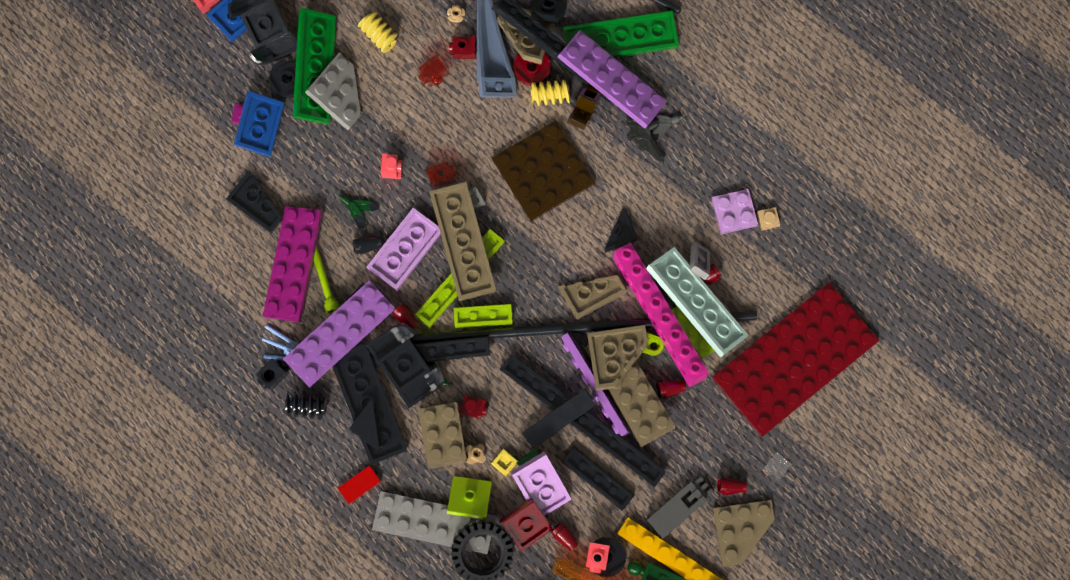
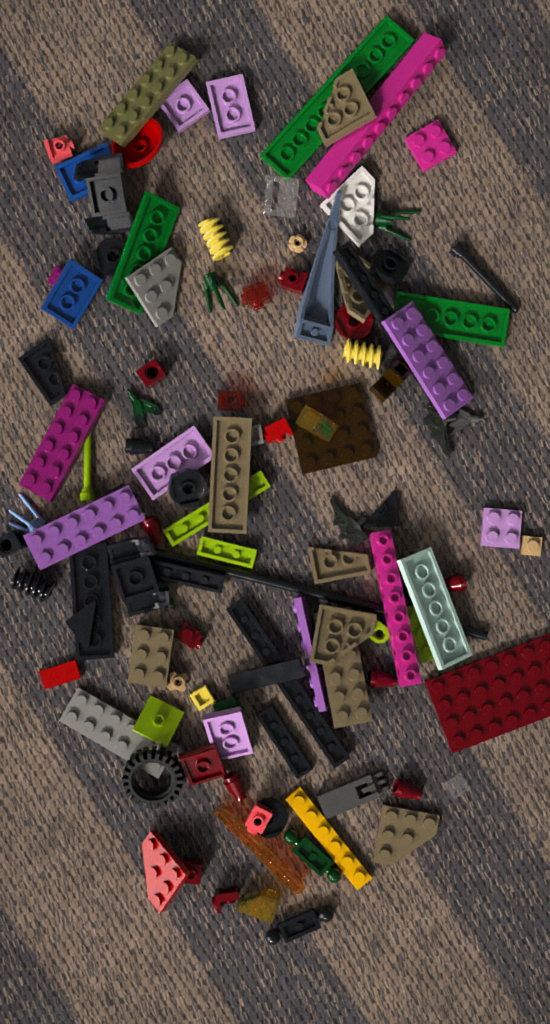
camera: 20 degrees right, 10 degrees up
(358, 181) = (143, 373): none -> dark red brick
(390, 73) = (213, 282): none -> dark green plant
(391, 166) = (186, 377): coral brick -> none
(434, 271) = (183, 477): none -> black plate
(494, 188) = (277, 431): none -> red brick
(528, 168) = (316, 423): none -> clear yellow slope
(590, 256) = (349, 528): none -> pearl dark grey piece
(700, 261) = (451, 568): light grey plate -> none

